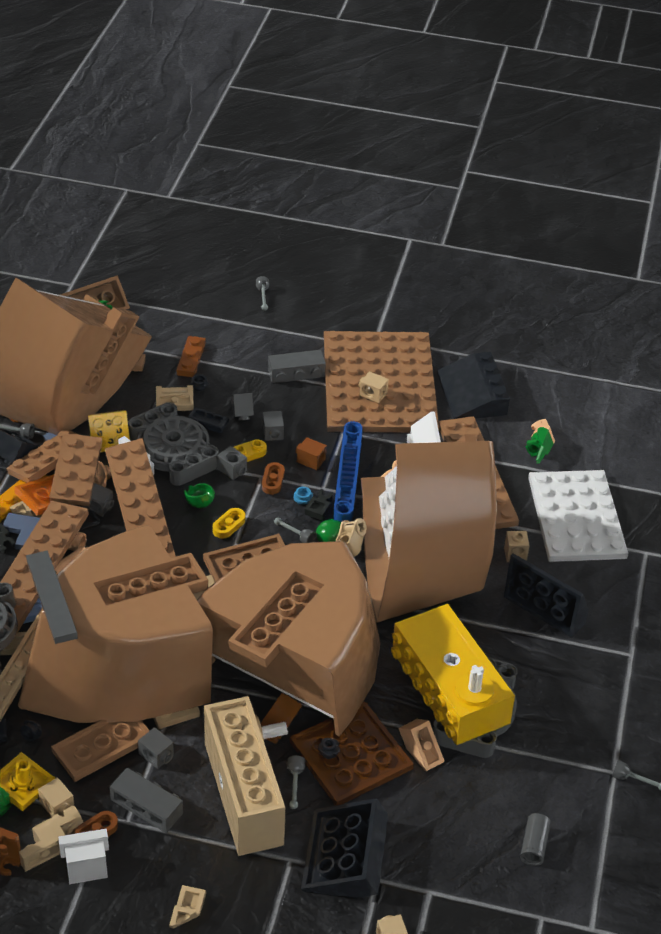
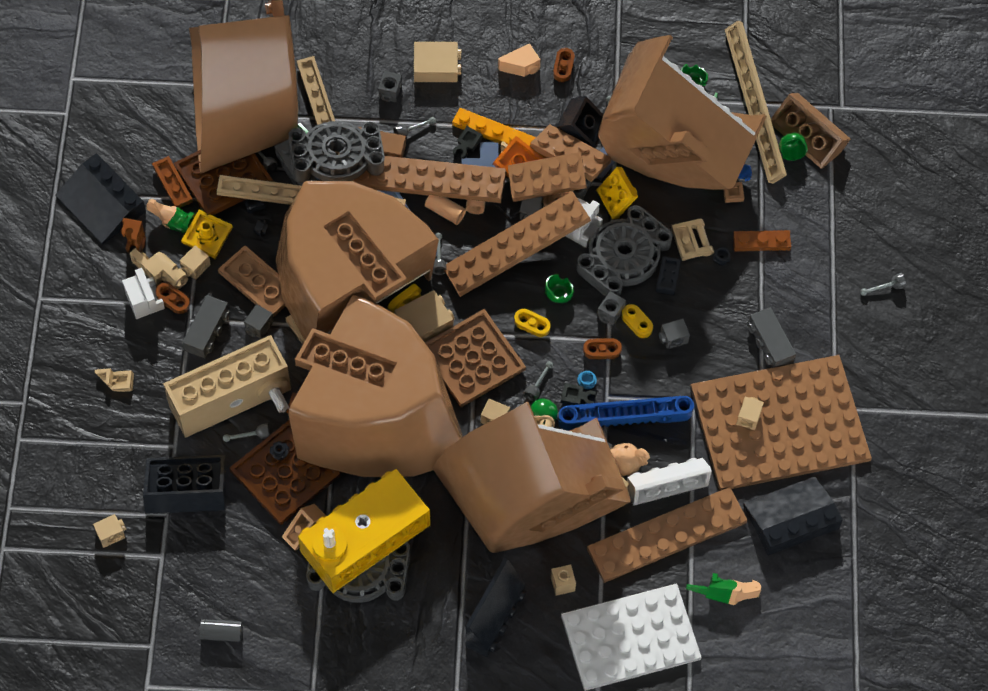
camera: 80 degrees right, 20 degrees up
(51, 597) = (320, 182): dark grey tile -> none
(242, 406) = (696, 300): dark grey slope -> none
(311, 453) = (644, 375): dark orange brick -> none

